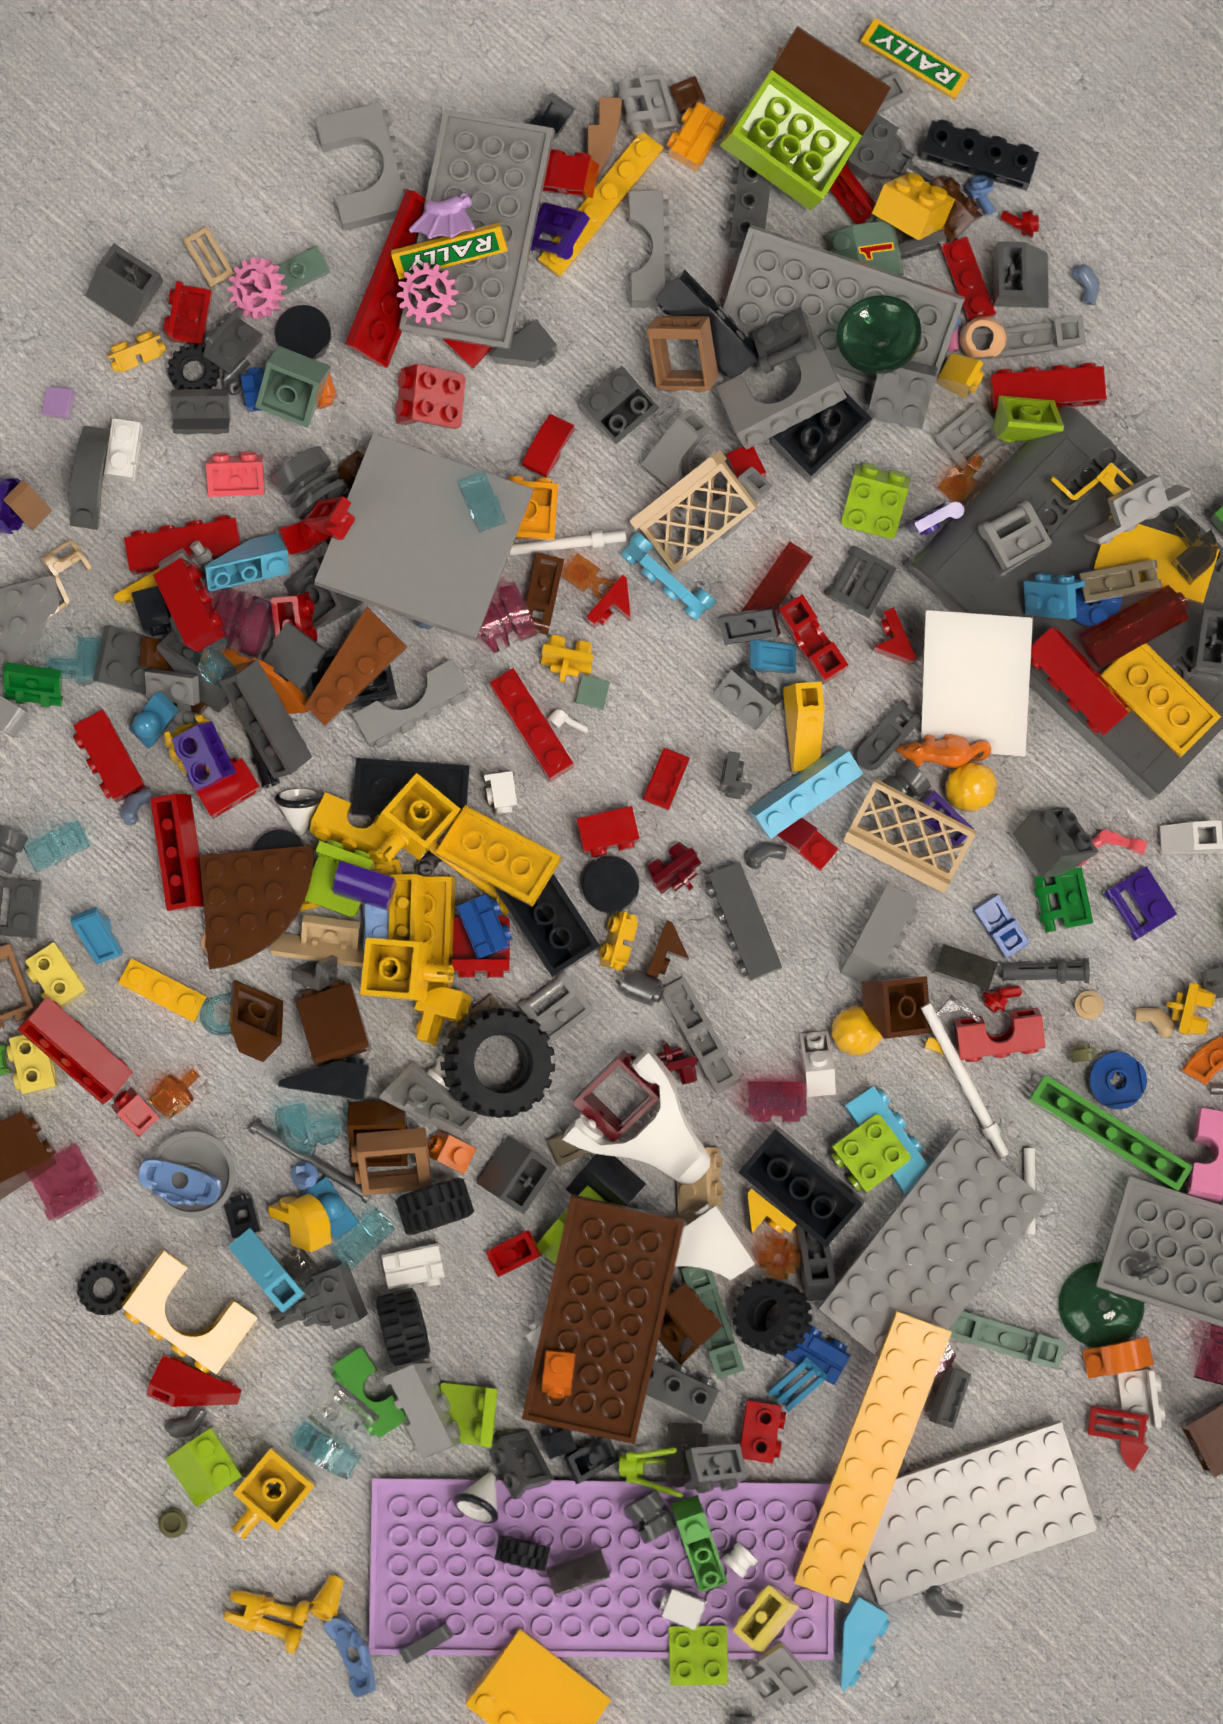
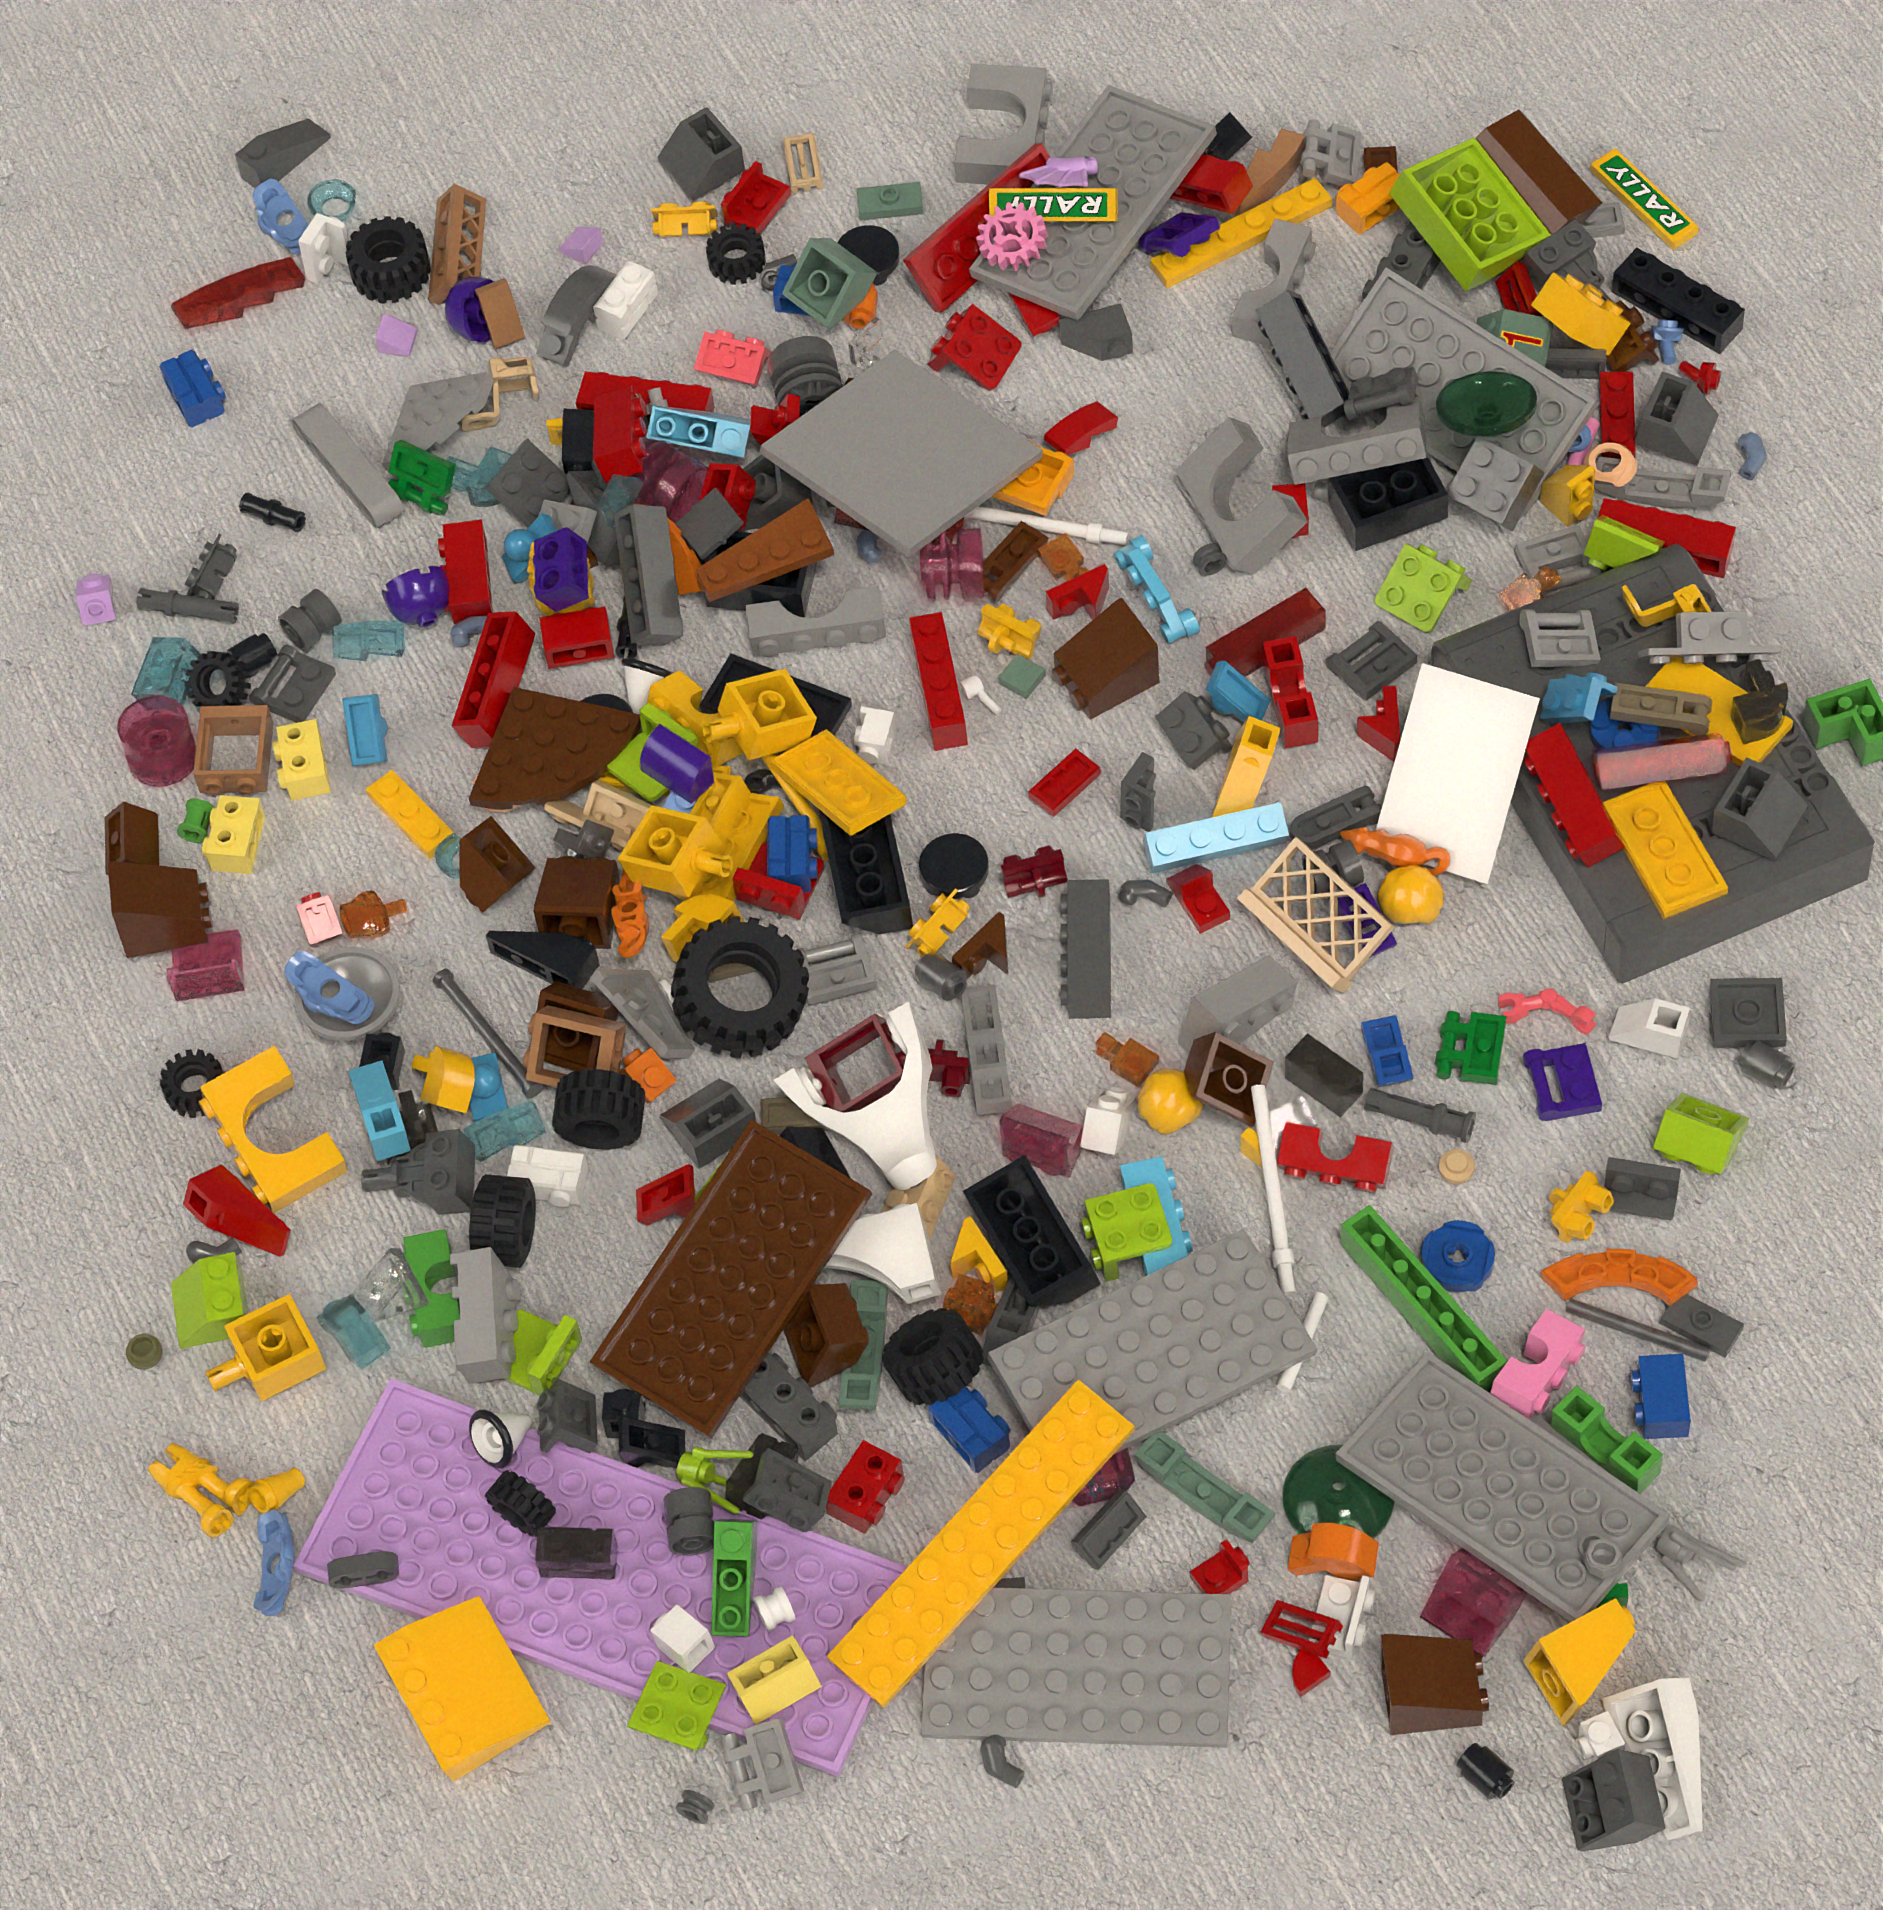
camera: 30 degrees right, 25 degrees down
(75, 1050) = (283, 827): brick -> none
(84, 799) = (417, 596): none -> dark purple cylinder
(150, 656) = (557, 486): reddish brown plate -> none
(200, 411) = (725, 287): dark grey bracket -> none
(231, 341) = (784, 231): dark grey bracket -> none
(263, 276) = (838, 197): bright pink gear -> none
(300, 1134) = (490, 996): clear light blue brick -> none
(304, 1175) = (472, 1041): medium blue plate -> none
(331, 517) = (808, 394): red slope -> none
(382, 1027) = (630, 916): none -> orange animal
(481, 502) = (979, 436): clear light blue slope -> none
(558, 1374) = (650, 1315): orange bracket -> none
(608, 831) = (974, 807): red brick -> none
(617, 405) = (1171, 406): dark grey slope -> none
(658, 663) = (1107, 661): none -> reddish brown slope
(682, 328) = (1241, 370): medium nougat window -> none
(682, 490) = (1205, 496): tan fence -> none
(749, 625) = (1221, 644): hinge -> none
(784, 1396) = (939, 1422): dark azure tile -> none
(814, 1006) = (1128, 1061): none -> clear orange plate
(859, 1632) = (884, 1752): medium azure slope -> none
(929, 520) = (1471, 608): plate -> none
(997, 1000) = (1345, 1122): red plate -> none
(1042, 1399) = (1222, 1572): none -> red bracket
(1054, 841) = (1484, 975): dark grey slope -> none
(1082, 1053) = (1427, 1211): olive plate -> none
(1147, 1268) = (1404, 1446): dark grey bush -> none
(1158, 1018) = (1534, 1206): tan arm -> none

